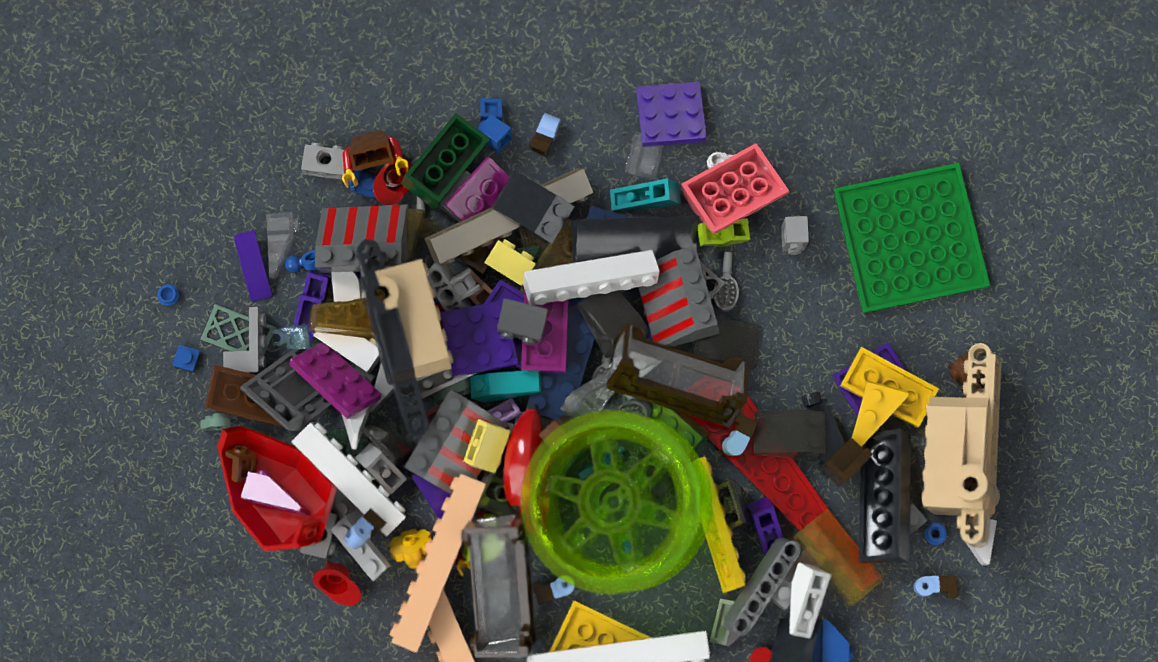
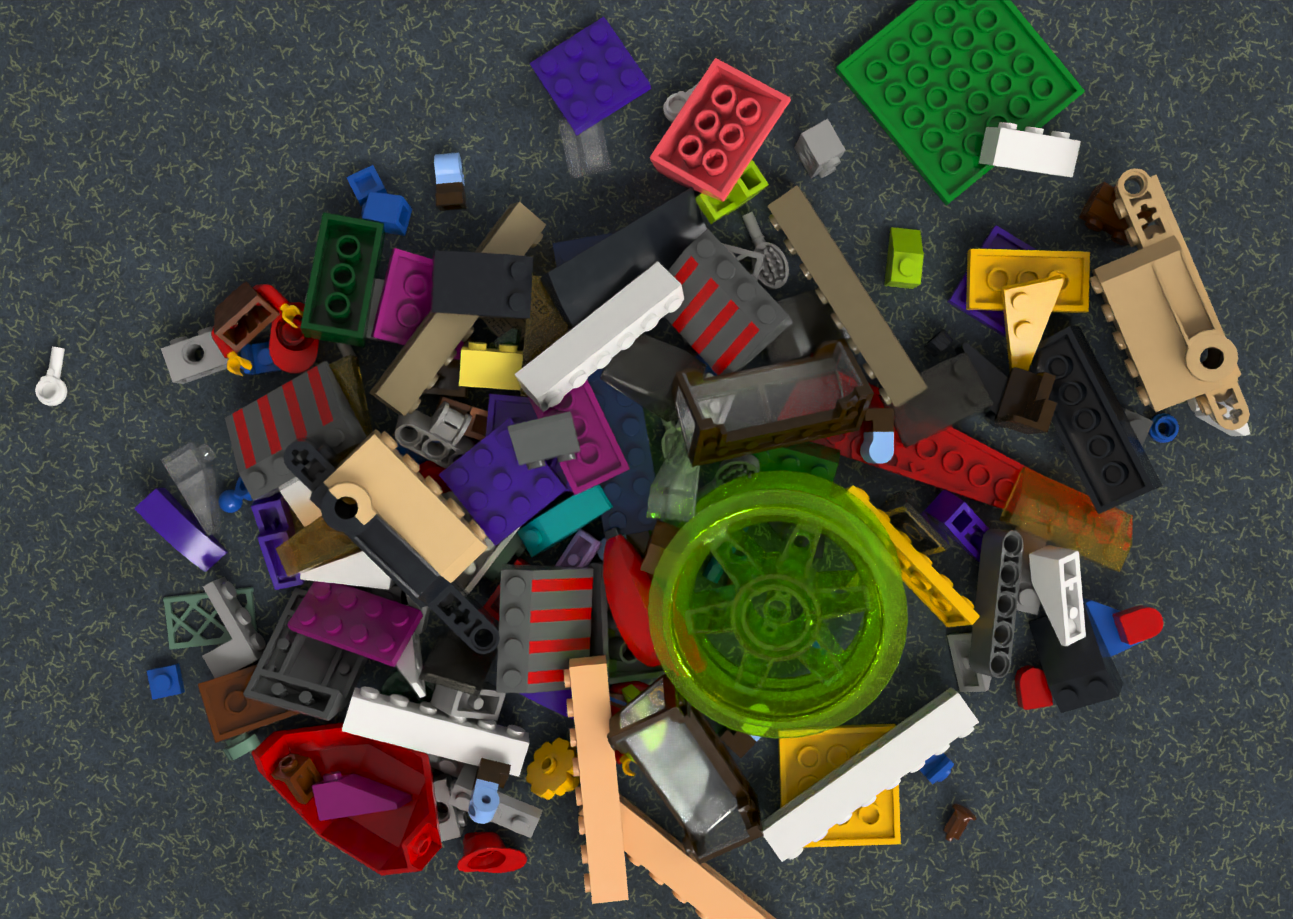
camera: 25 degrees left, 10 degrees up
(168, 295) = (100, 617): blue plate -> none
(218, 134) = (51, 388): none -> white plate
(294, 336) = (278, 590): clear light blue plate -> none
(487, 446) = (582, 612): light yellow brick -> none
(646, 195) = (612, 195): teal slope -> none
(764, 336) = (847, 297): none -> dark tan brick
(816, 333) = (904, 258): none -> lime slope
(850, 649) = (1138, 624): none -> red piece
(932, 304) = (1029, 150): none -> white brick
(936, 584) = (1188, 492): leg -> none

